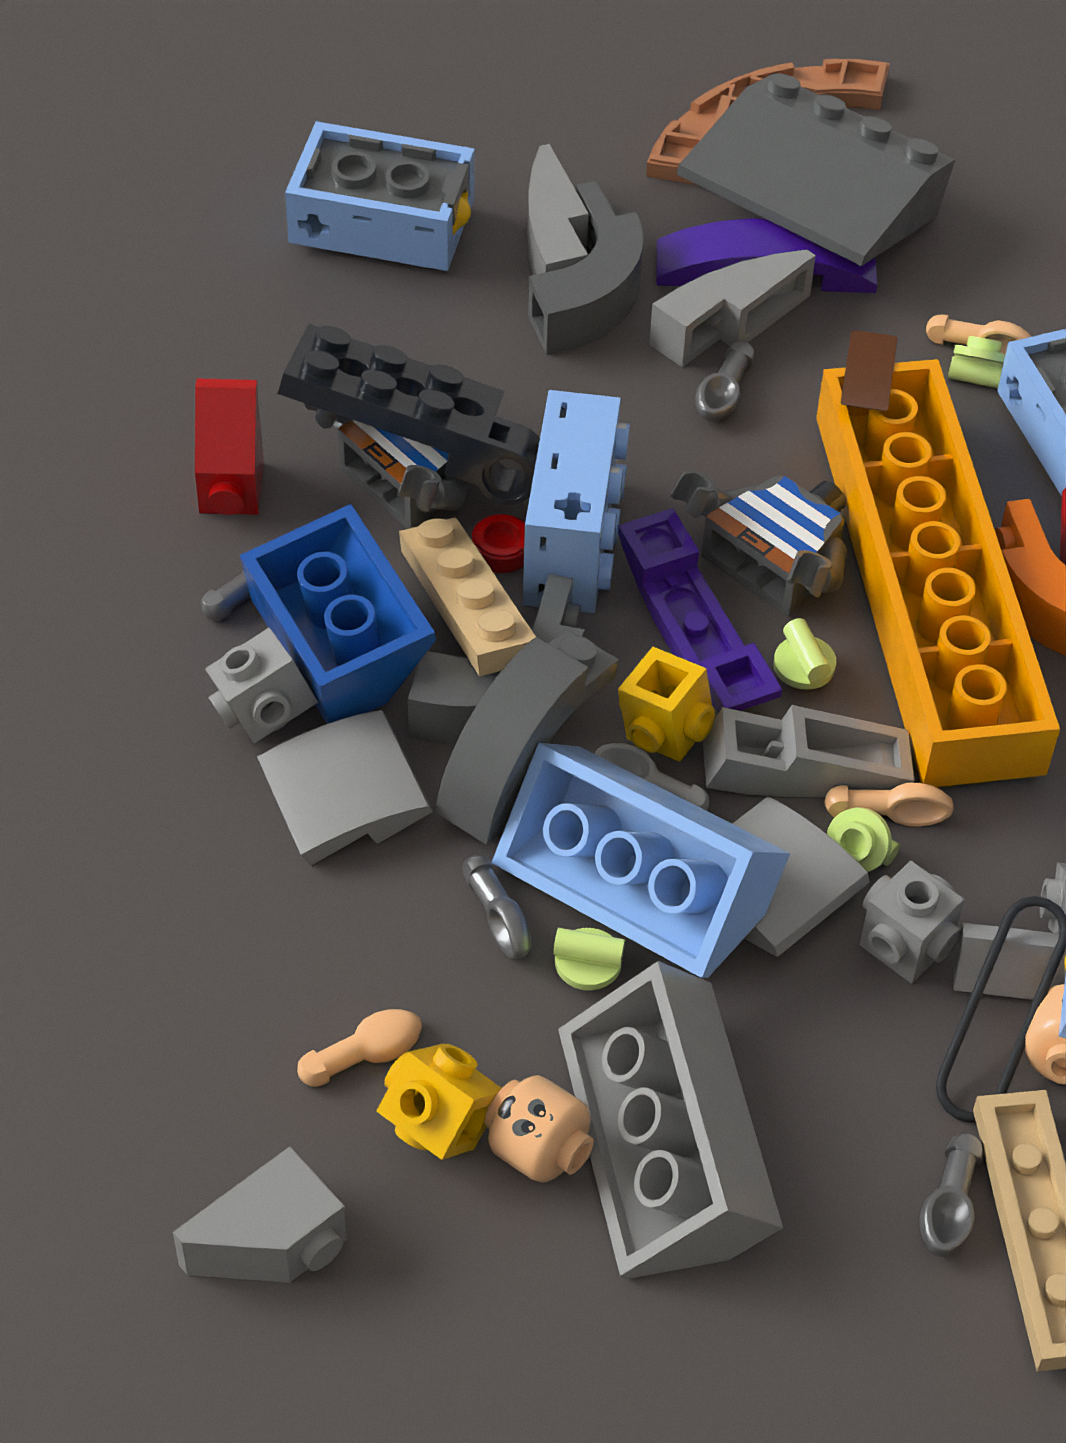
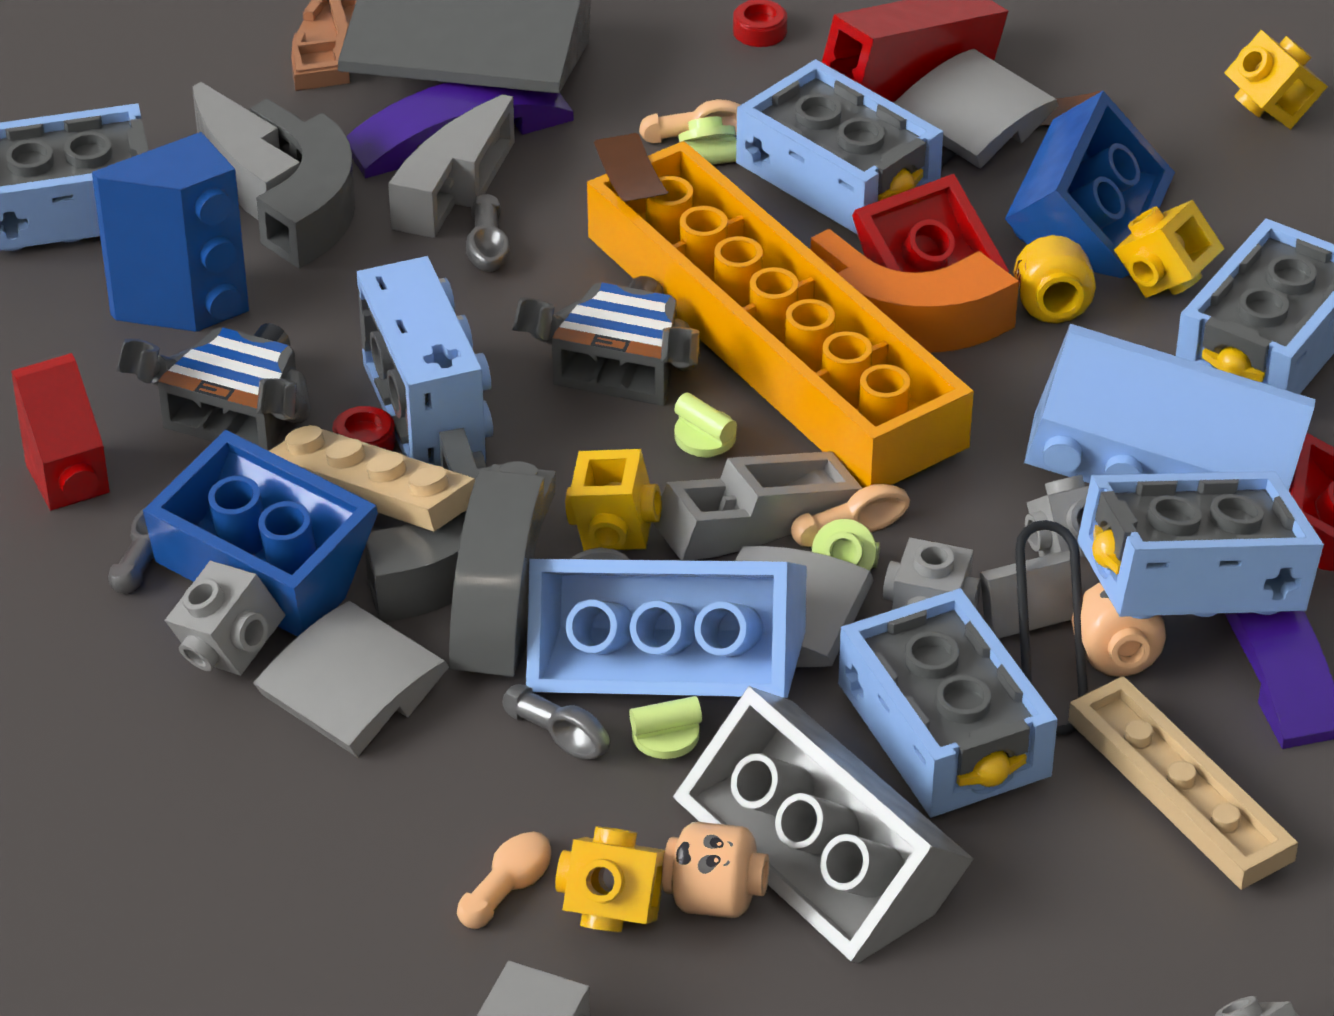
camera: 25 degrees left, 10 degrees down
(417, 403) = (232, 327): black hinge -> none
(421, 284) = (172, 236): none -> blue slope
(689, 614) = (533, 399): dark purple slope -> none
(854, 1048) = (946, 702): none -> piece
(948, 1212) = (1095, 802): flat silver piece -> none

